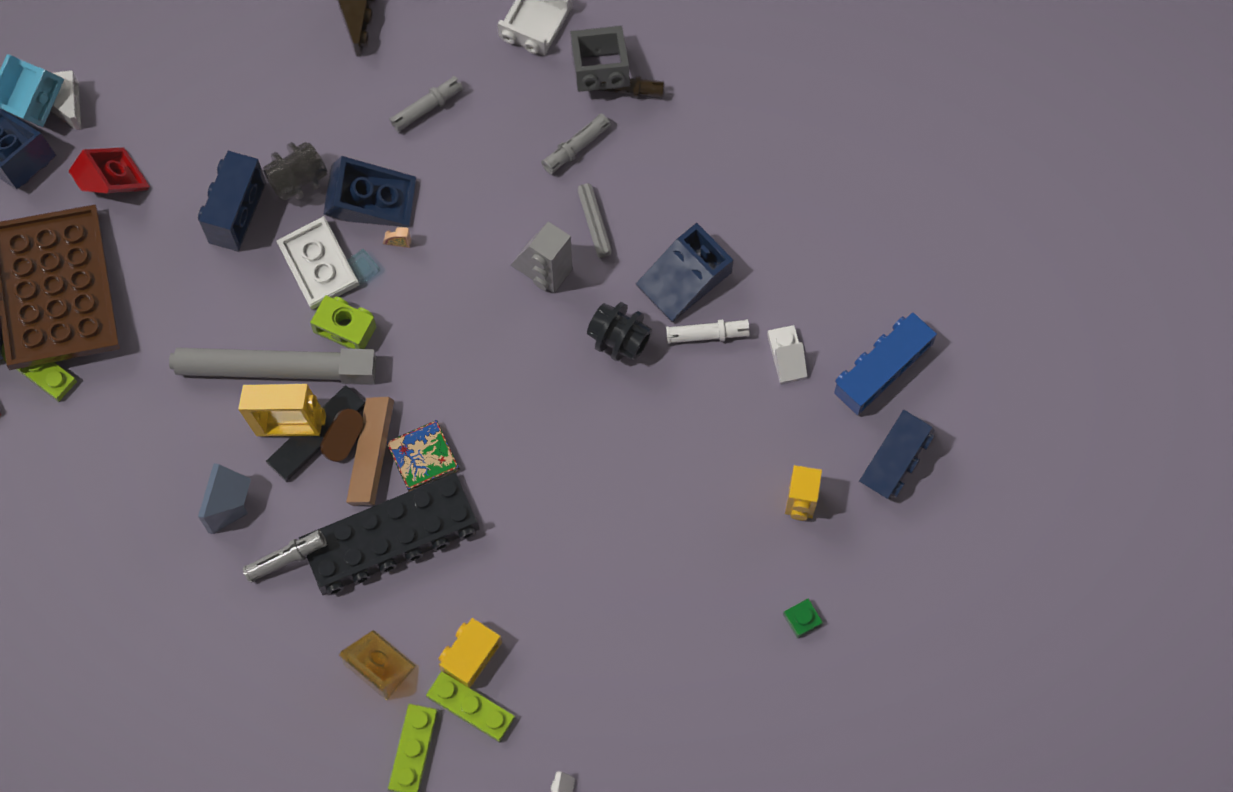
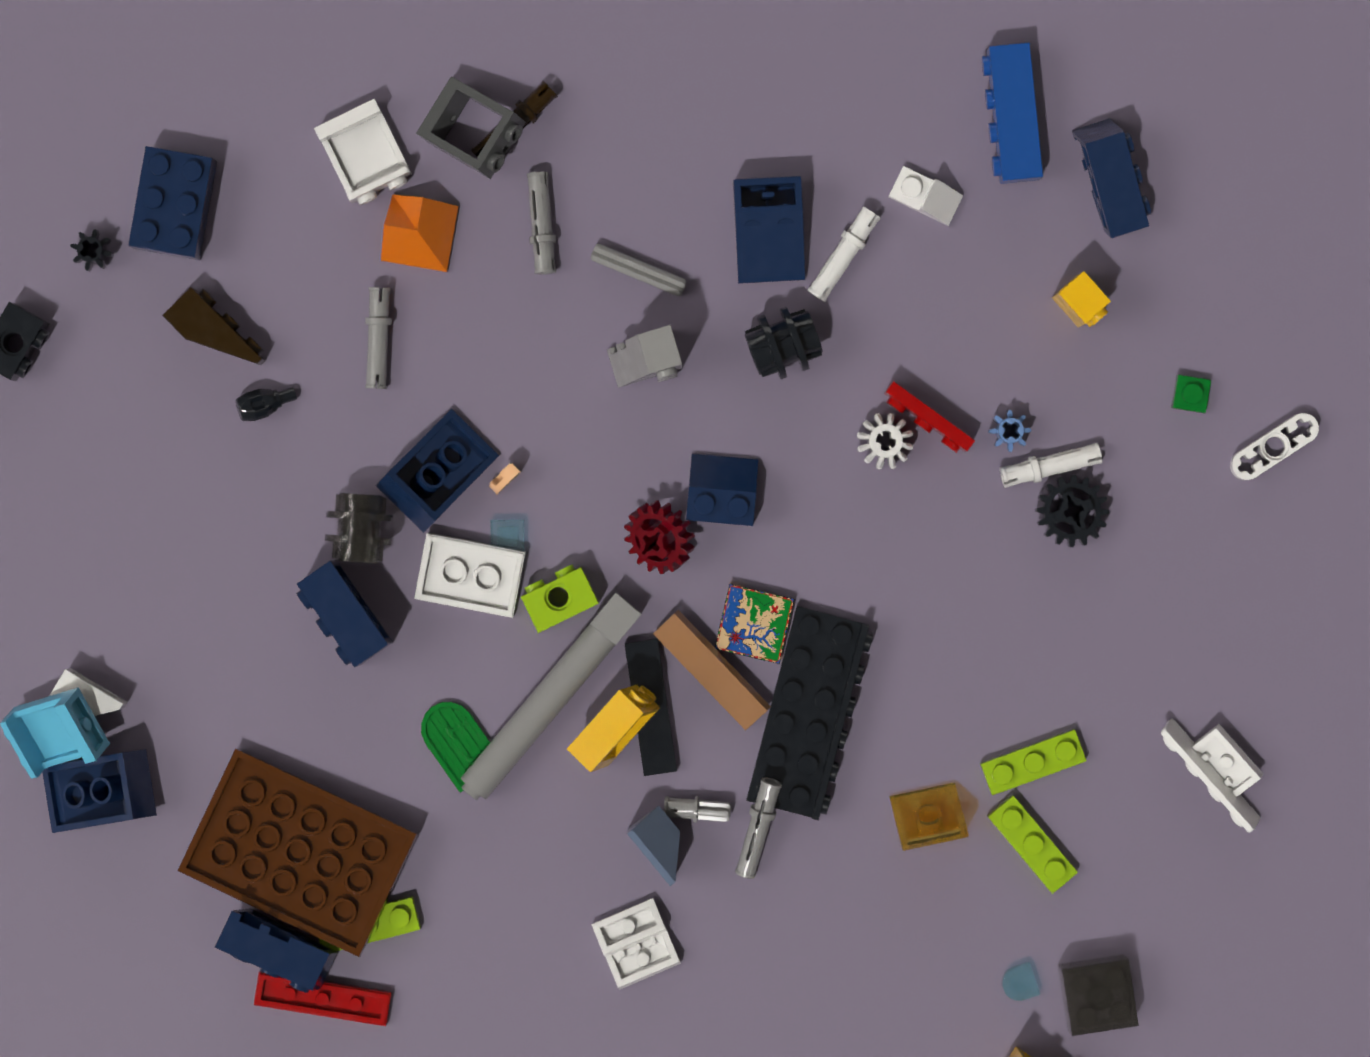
camera: 50 degrees left, 20 degrees up
(107, 171) = (211, 712): red slope -> none
(146, 541) = (636, 943): none -> white slope
(203, 327) = (453, 739): none -> green window
(268, 510) = (697, 809): none -> light grey axle
(332, 69) = (262, 403): none -> black piece
(341, 435) = (675, 685): reddish brown tile -> none
(432, 351) = (659, 537): none -> dark red gear
(470, 652) = (985, 725): yellow brick -> none
(493, 370) = (722, 489): none -> dark blue slope
(511, 81) = (419, 232): none -> orange slope
(609, 434) = (875, 447): none -> white gear
(645, 460) = (927, 418): none -> red plate
(669, 605) = (1065, 495): none -> black gear
(680, 508) = (1019, 431): none -> medium blue gear
(681, 563) = (1043, 467): none -> white pin
(832, 714) = (1299, 440): none -> white beam

